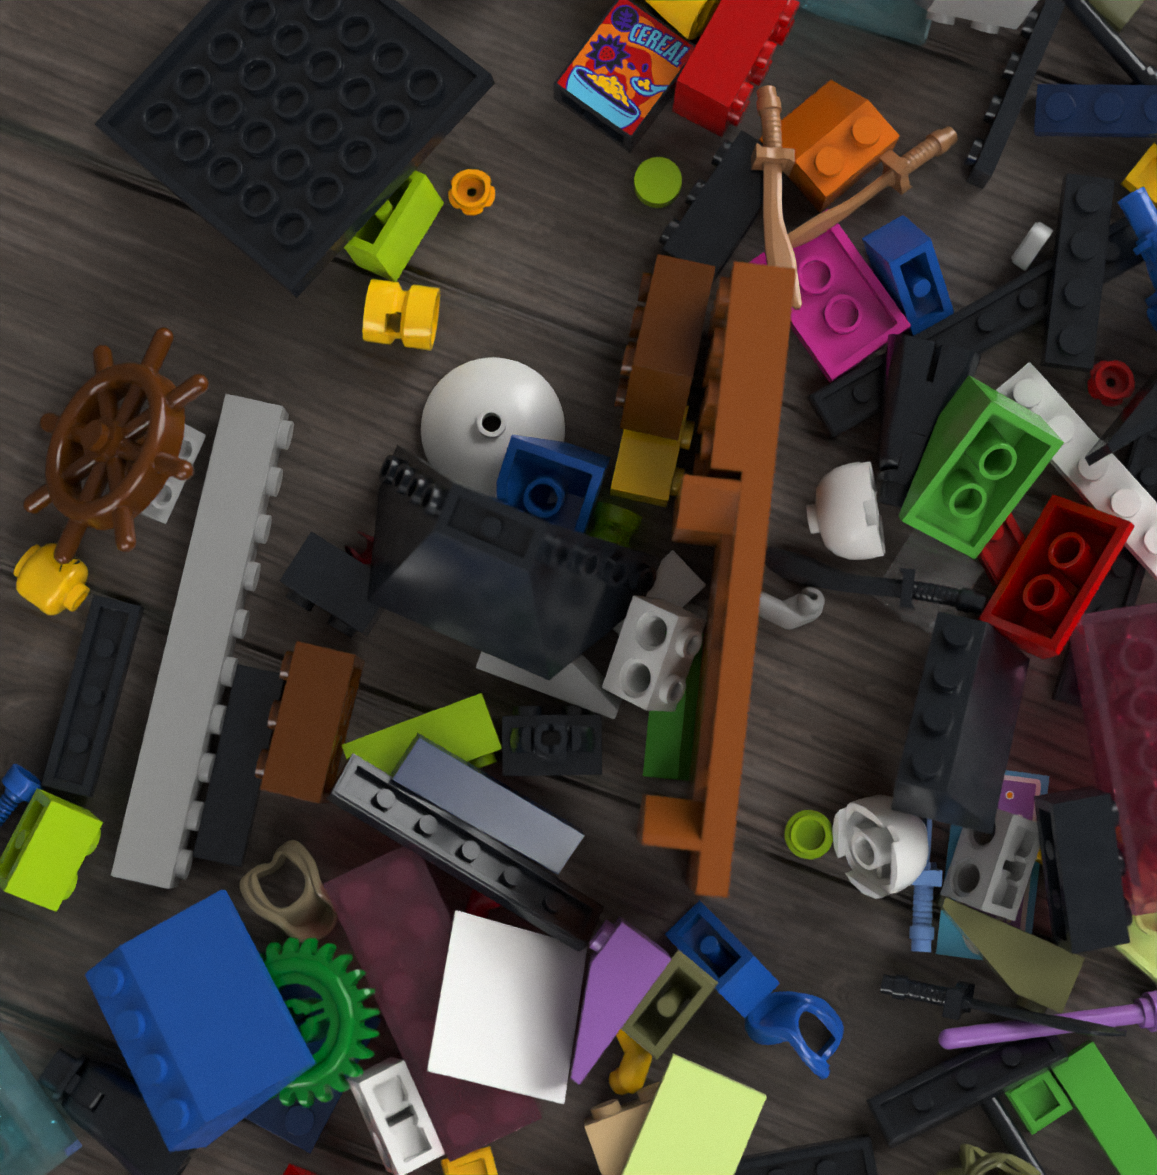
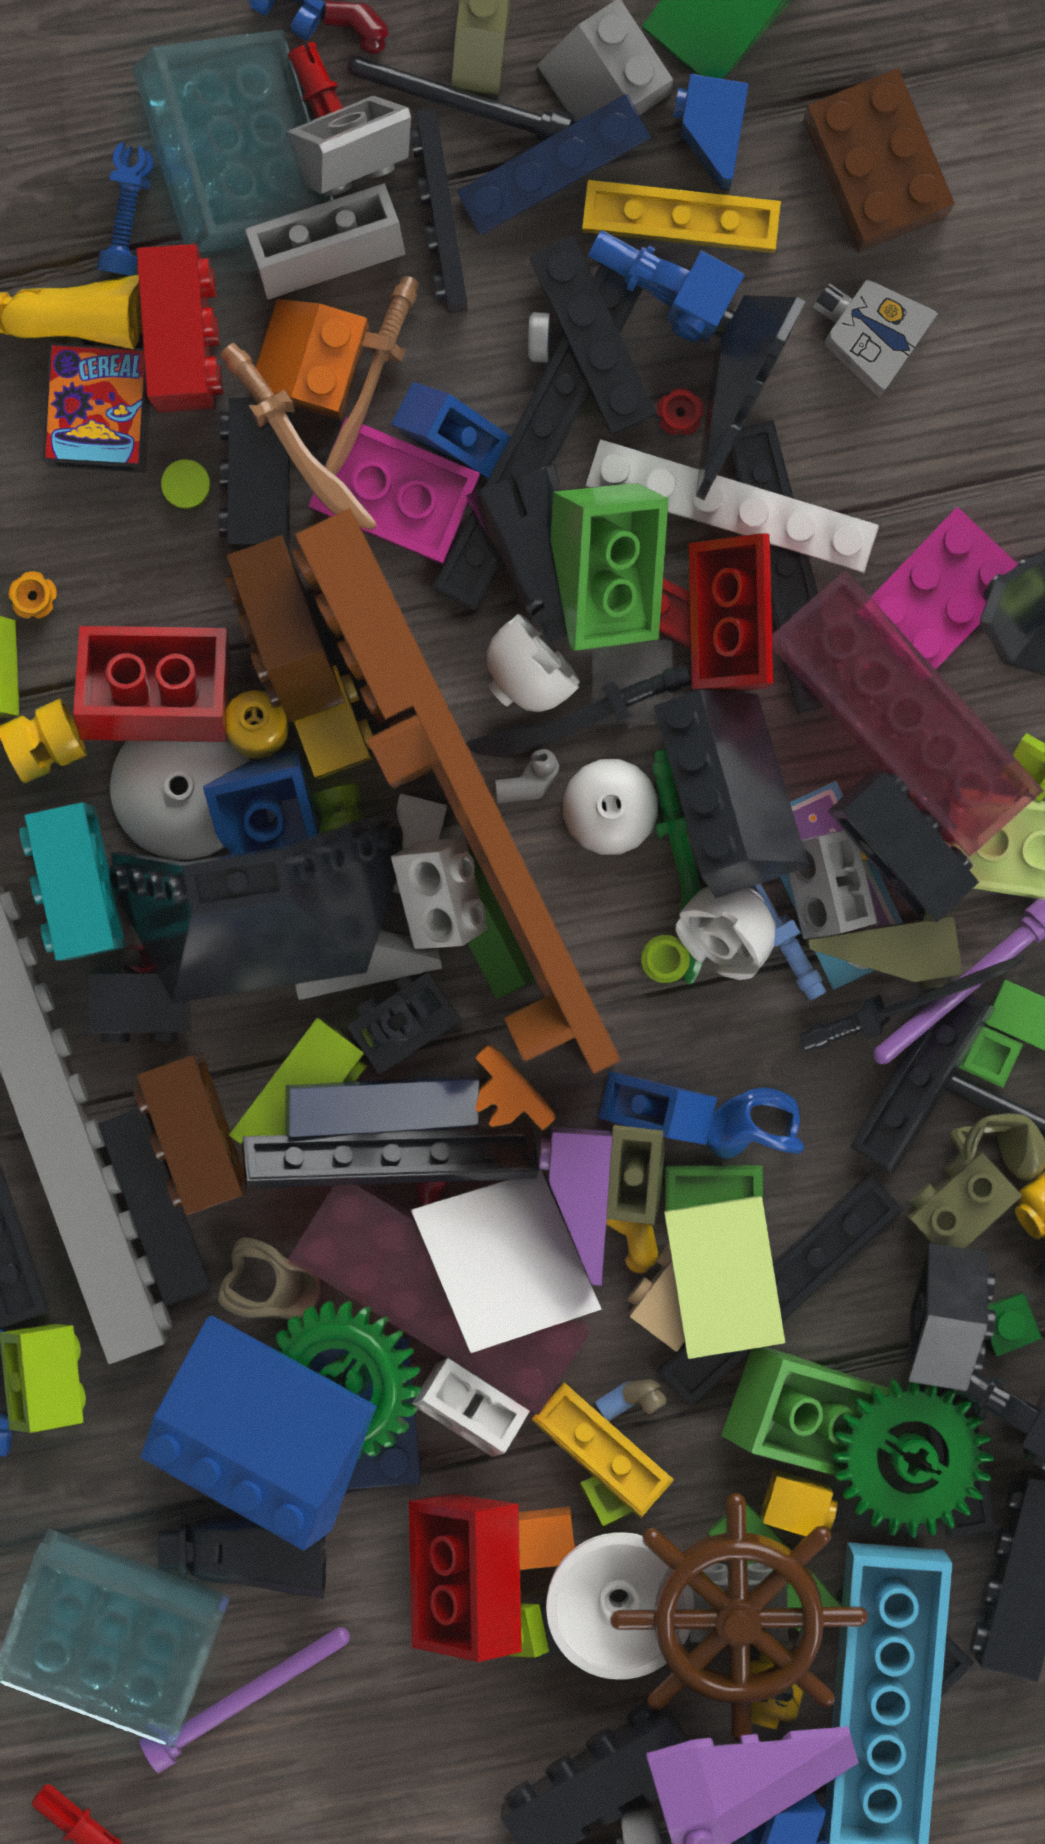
camera: 35 degrees left, 5 degrees up
(349, 445) = (72, 882): none -> teal brick
(524, 324) = (152, 683): none -> red brick
(588, 414) = (260, 739): none -> yellow head
(605, 863) = (509, 1092): none -> orange piece
(724, 1054) = (710, 1184): none -> bright green tile
(838, 695) = (616, 828): none -> white cylinder
(889, 726) = (676, 827): none -> green sword
(904, 54) = (326, 241): none -> light grey brick

